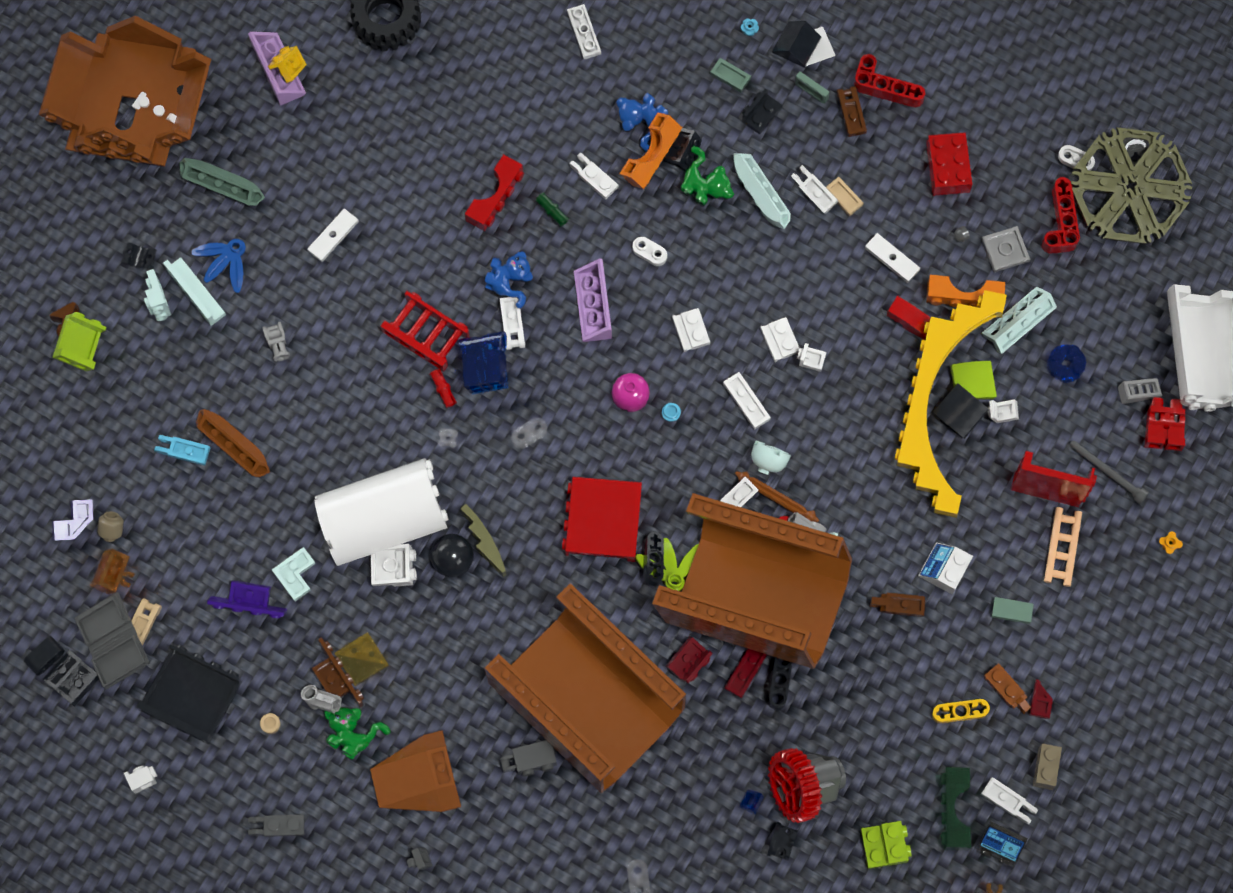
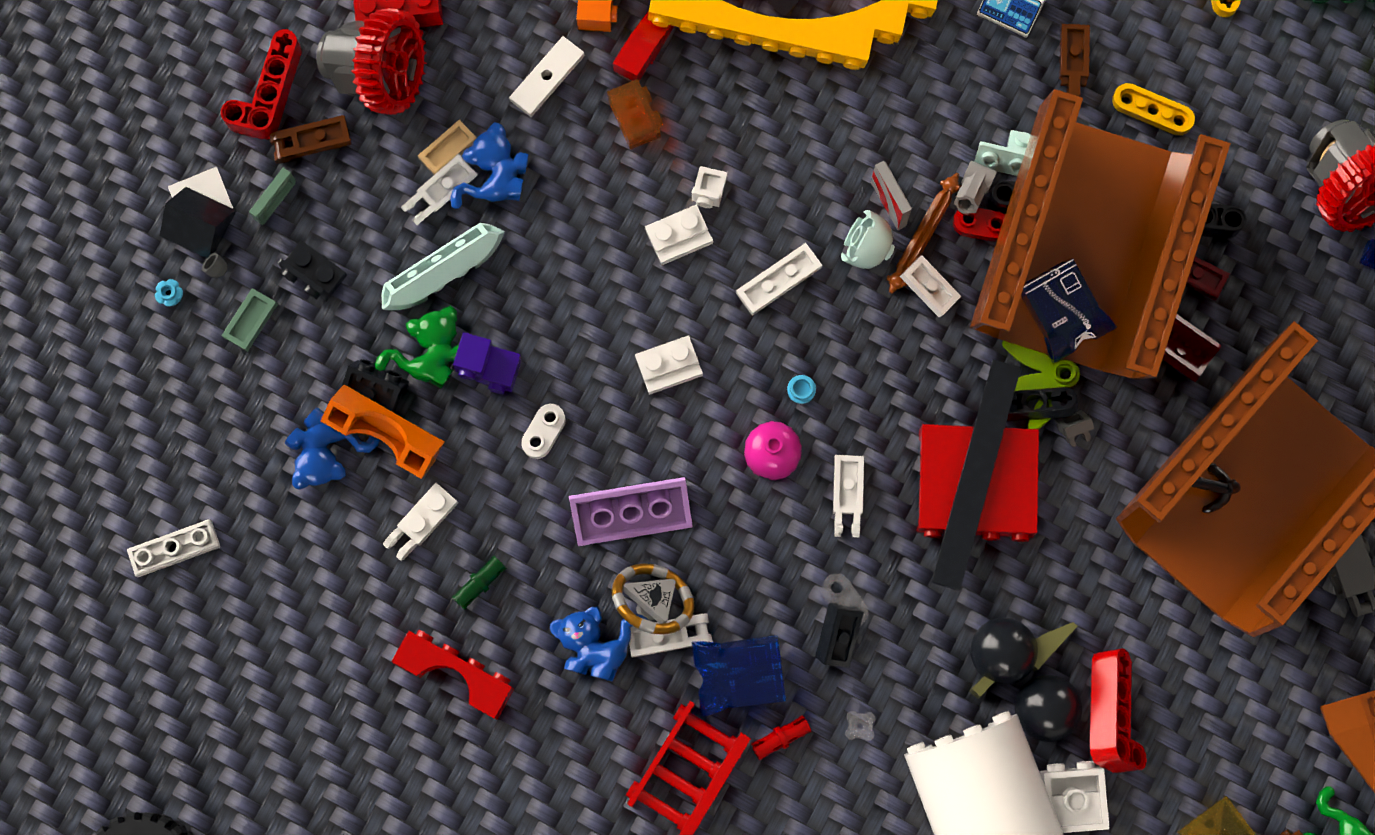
camera: 90 degrees left, 5 degrees up
(445, 590) = (1111, 714): none -> red beam
(489, 526) = (1004, 651): none -> black piece
(505, 426) = (839, 635): none -> black slope
(535, 311) = (652, 598): none -> piece
(589, 677) = (1224, 486): none -> black piece
(599, 437) = (848, 491): none -> white hinge
(605, 513) = (975, 475): none -> black tile
(638, 584) = (1074, 425): none -> dark grey tile
(693, 215) = (486, 364): none -> dark purple brick
(716, 575) = (1065, 309): none -> clear blue piece
(766, 53) = (215, 266): none -> dark grey hinge
(800, 471) = (891, 195): none -> light grey tile
(837, 221) = (492, 153): none -> blue animal
(864, 312) = (634, 113): none -> clear orange brick
(865, 647) = (1166, 109): none -> yellow plate
(899, 147) = (376, 60): none -> red piece

